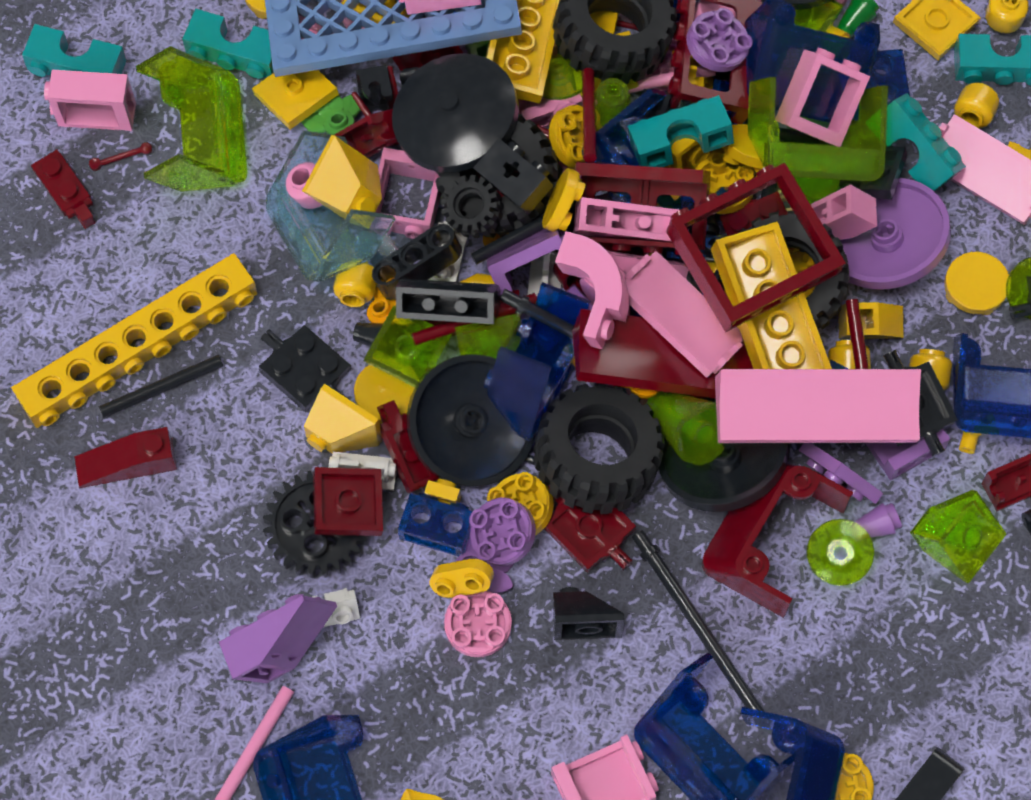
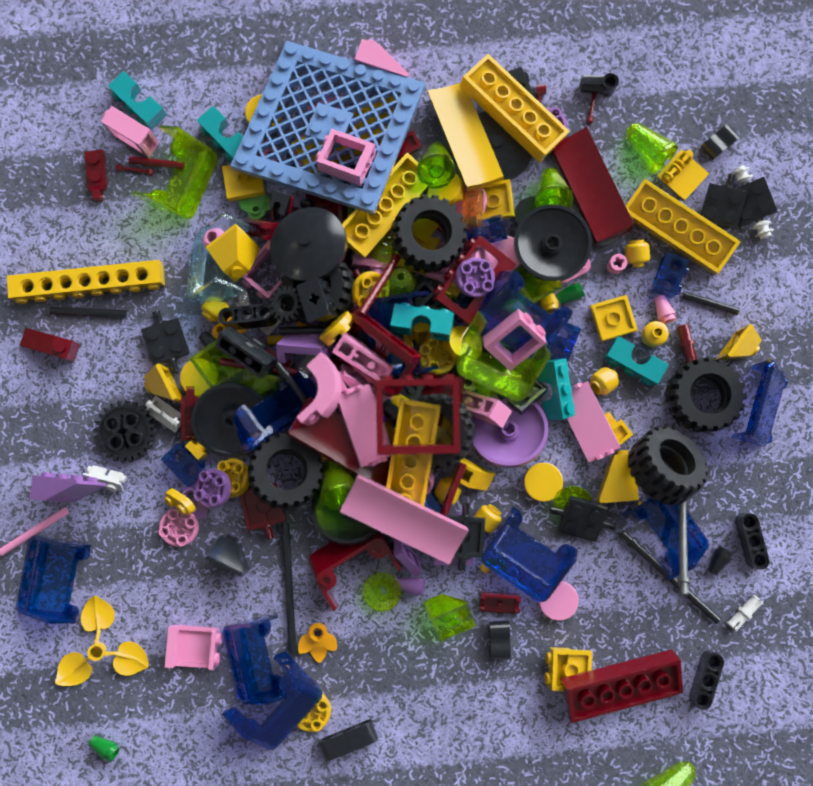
camera: 30 degrees right, 15 degrees up
(149, 129) = (156, 162): none -> dark red bar
(348, 501) = (141, 431): dark red plate -> none
(792, 683) = (317, 644): none -> light orange plate

